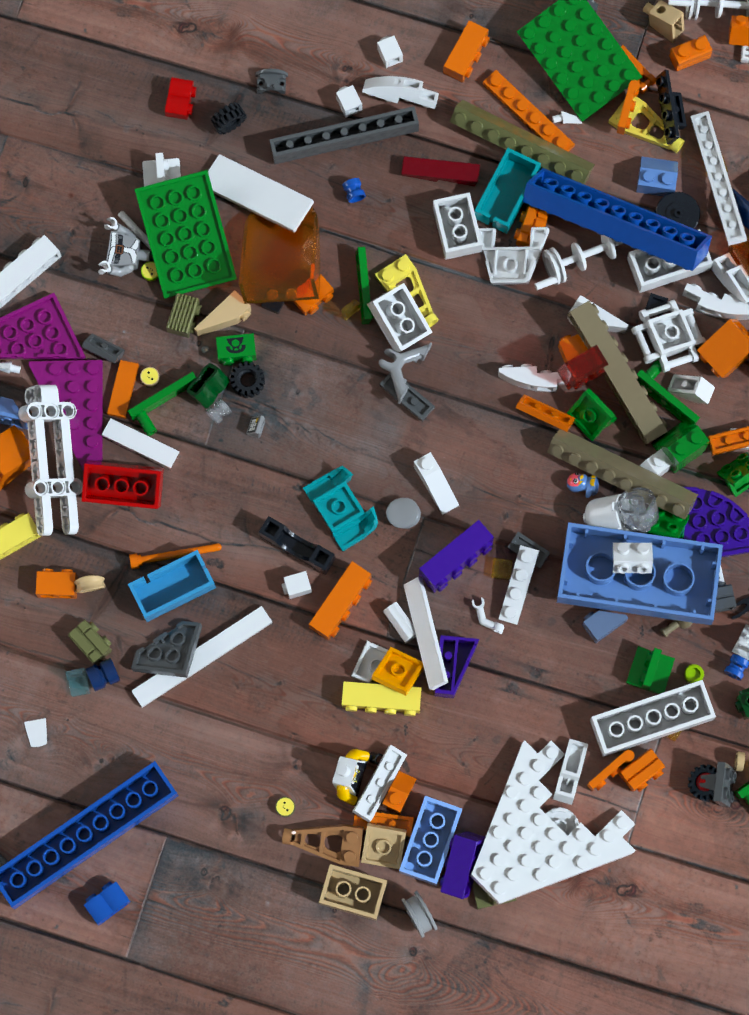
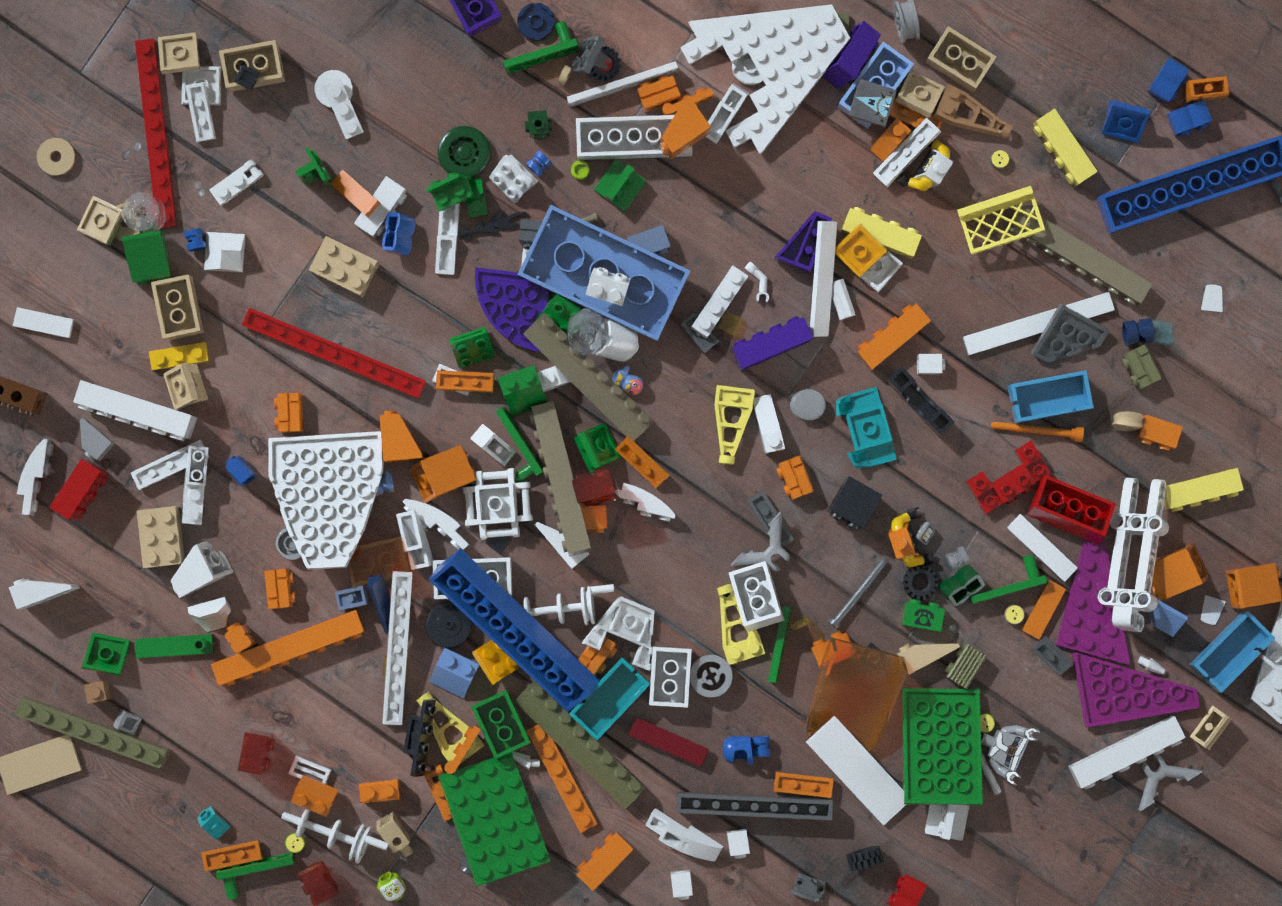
camera: 170 degrees left, 10 degrees up
(97, 935) = (1206, 89): none -> orange brick
(138, 934) = (1168, 80): none -> blue brick
(171, 881) = (1125, 121): none -> blue bracket
(180, 733) = (1085, 259): none -> dark tan brick
(185, 497) = (1012, 483): none -> red bracket
(224, 836) = (1064, 147): none -> light yellow brick
(275, 411) = (904, 540): none -> torso
(275, 756) = (995, 205): none -> light yellow fence
(304, 168) = (803, 784): none -> orange plate
(317, 320) = (857, 595): none -> dark grey bar
(332, 430) = (854, 503): none -> black brick
(375, 183) = (738, 748): none -> blue helmet
(395, 441) = (795, 478): none -> orange brick
(425, 229) = (697, 683): none -> light grey wheel
(429, 817) = (872, 103): none -> flat silver tile
(473, 499) = (732, 397): none -> light yellow plate
(600, 140) = (501, 724): none -> green brick
(607, 730) = (684, 129): none -> orange slope
(626, 189) = (494, 661): none -> light orange plate
(680, 769) = (621, 84): none -> white tile

